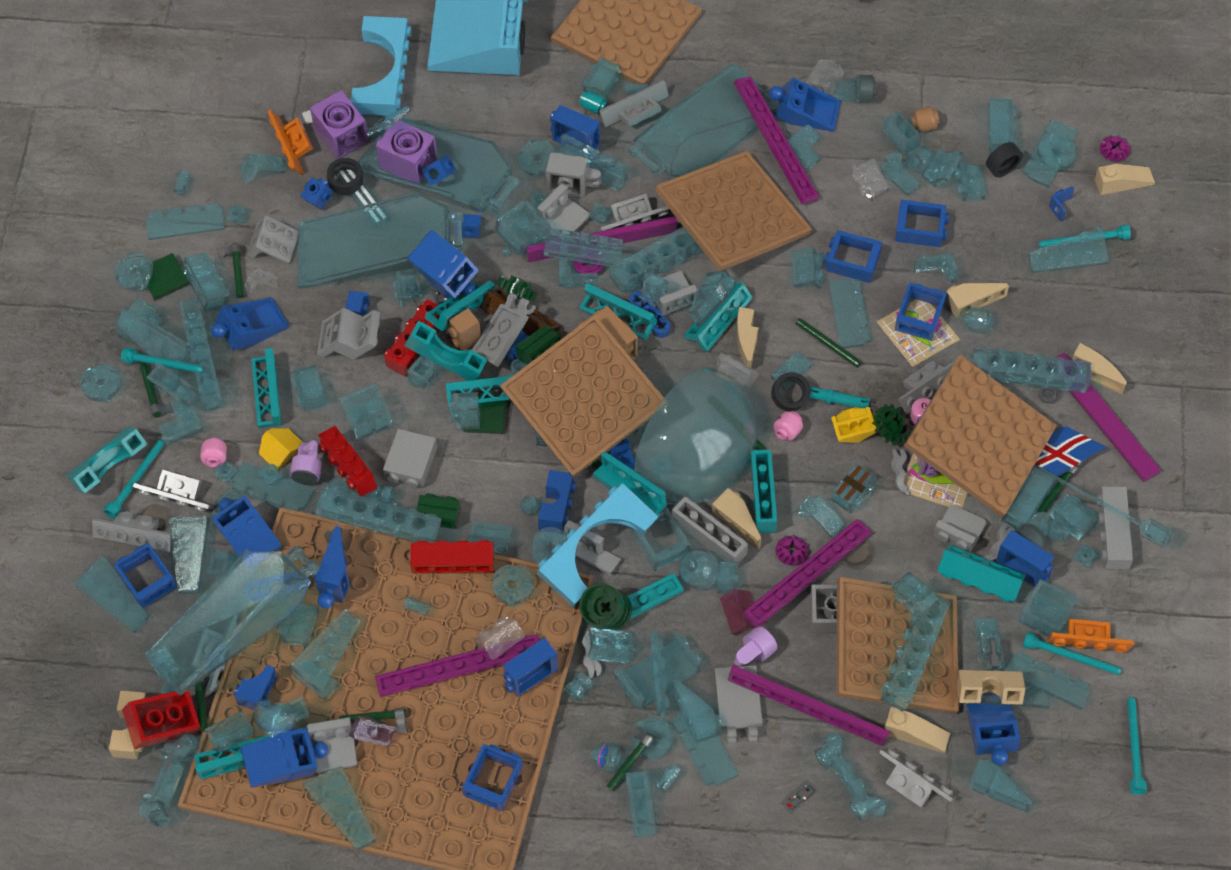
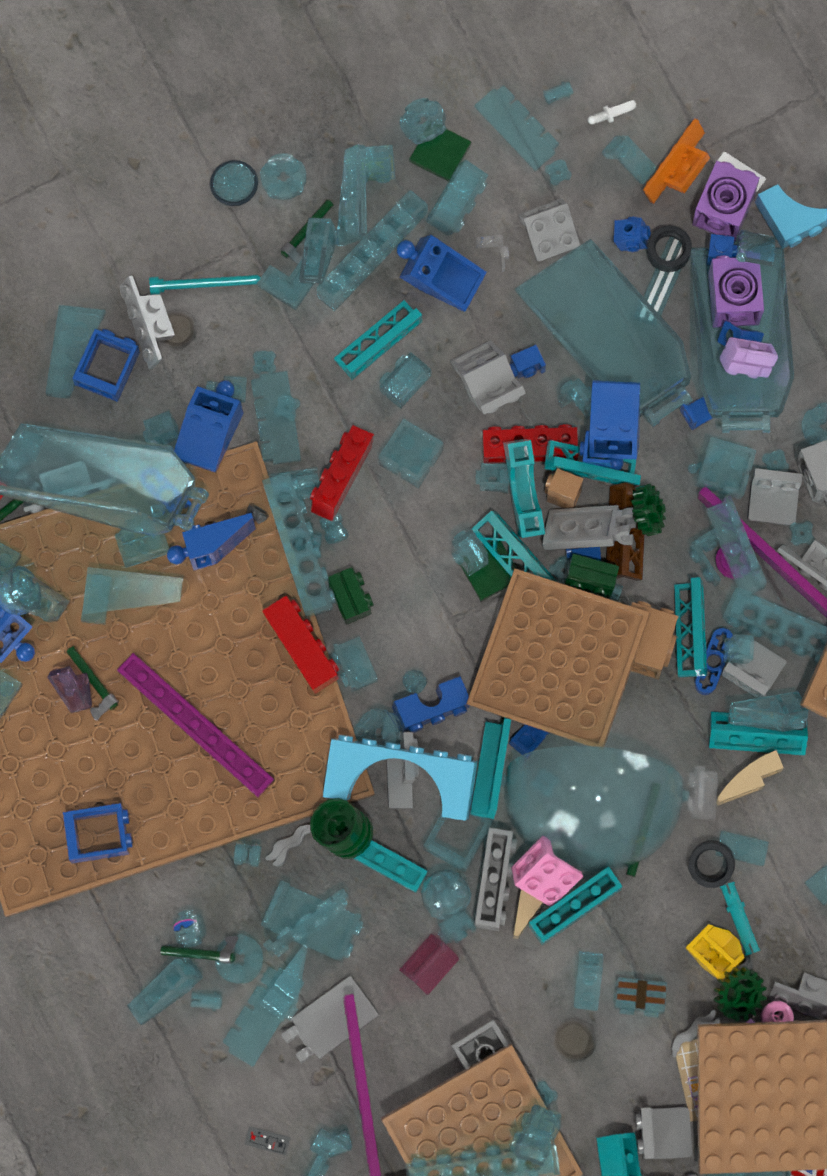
camera: 60 degrees right, 15 degrees up
(78, 417) = (234, 183): none -> clear light blue wheel
(92, 469) = (178, 236): teal arch -> none
(130, 356) = (330, 185): teal piece -> none
(177, 487) = (214, 330): bracket -> none
(189, 547) = (164, 384): clear light blue wing -> none
(213, 452) = (274, 337): bright pink head -> none
(221, 161) = (609, 113): none -> white piece
(235, 251) = (515, 200): dark green piece -> none
(255, 688) = (47, 553): blue arch -> none
(279, 446) = (325, 395): yellow slope -> none
(305, 465) = (313, 434): lavender piece -> none
(340, 745) = (35, 672): light grey bracket -> none
(367, 147) = (721, 246): none -> blue brick
(410, 458) = (389, 530): light grey brick -> none
(415, 605) = (230, 643): clear light blue pin -> none
(449, 298) = (584, 451): none -> blue bracket
(458, 169) = (748, 358): none -> lavender brick
(500, 637) = (245, 745): clear bracket -> none
(516, 595) = (317, 733): clear light blue plate -> none
(530, 667) = (226, 797): blue window -> none
(610, 645) = (309, 858): clear light blue bracket -> none
(729, 490) = (544, 874): none -> bright pink bracket
(758, 645) = (399, 1005): lavender piece -> none
(788, 426) = (670, 885): bright pink head -> none
(798, 555) = (527, 984): magenta gear -> none
(807, 573) = (511, 1006): magenta tile -> none
(827, 342) = (801, 867): dark green bar -> none

